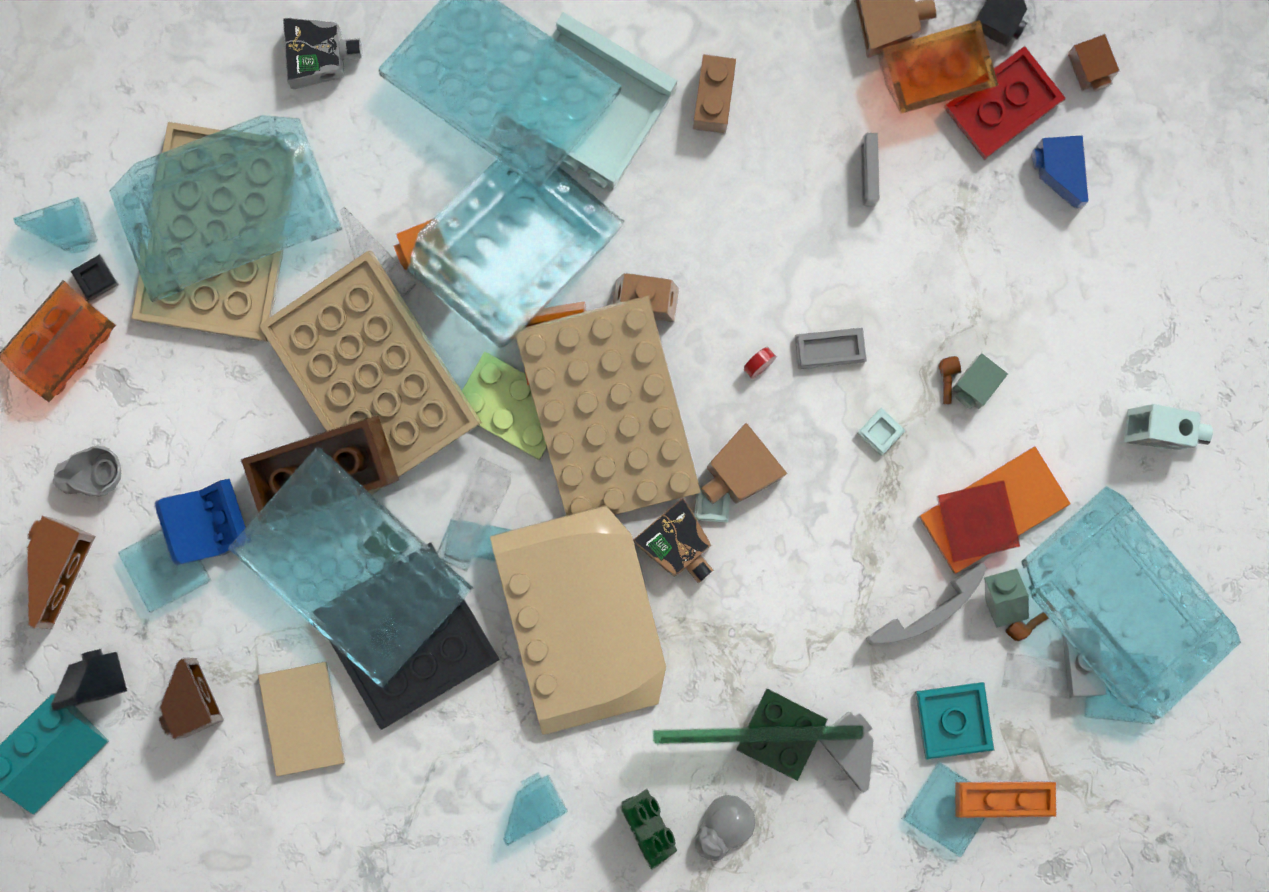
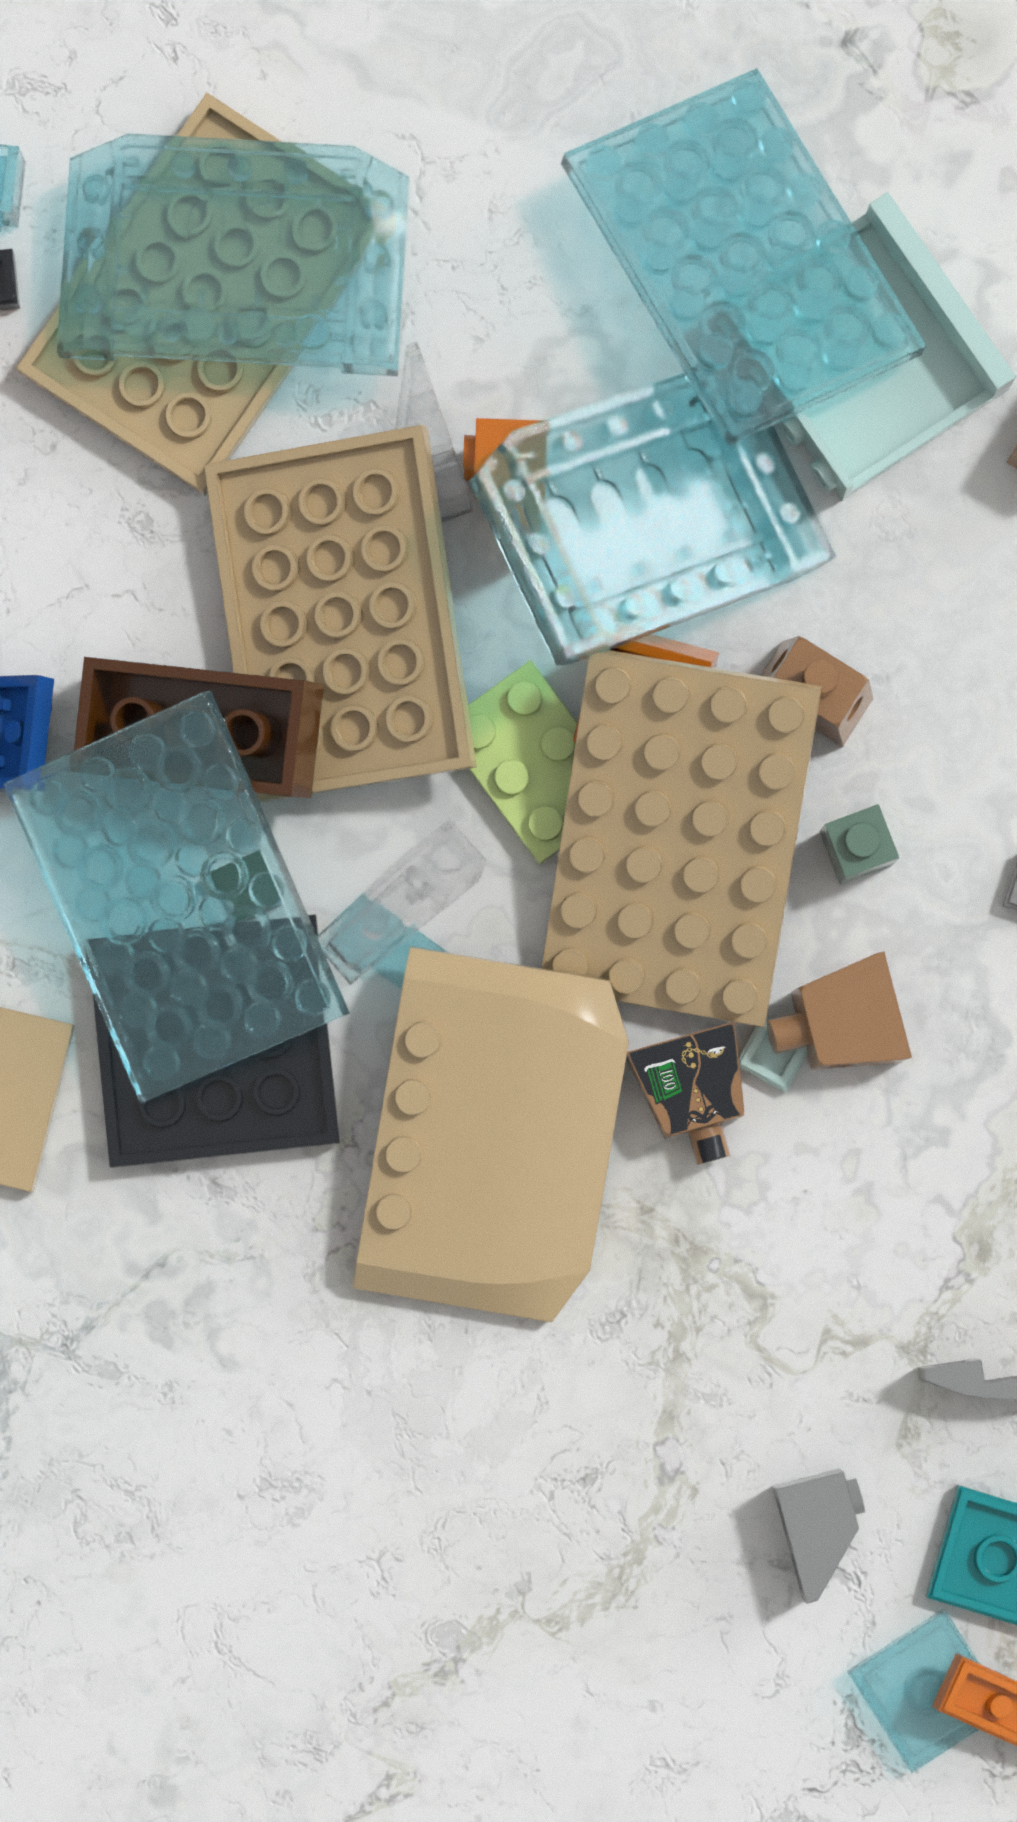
camera: 30 degrees right, 0 degrees up
(316, 51) = (480, 85): torso -> none
(534, 807) = (289, 1392): clear light blue slope -> none
(650, 832) = (450, 1513): dark green hinge -> none
(707, 370) = (859, 844): none -> sand green brick
(724, 826) = (567, 1557): light grey hair -> none
(758, 734) = (684, 1438): clear green tile -> none
(759, 362) = (946, 868): red tile -> none
(783, 756) = (720, 1456): dark green hinge -> none

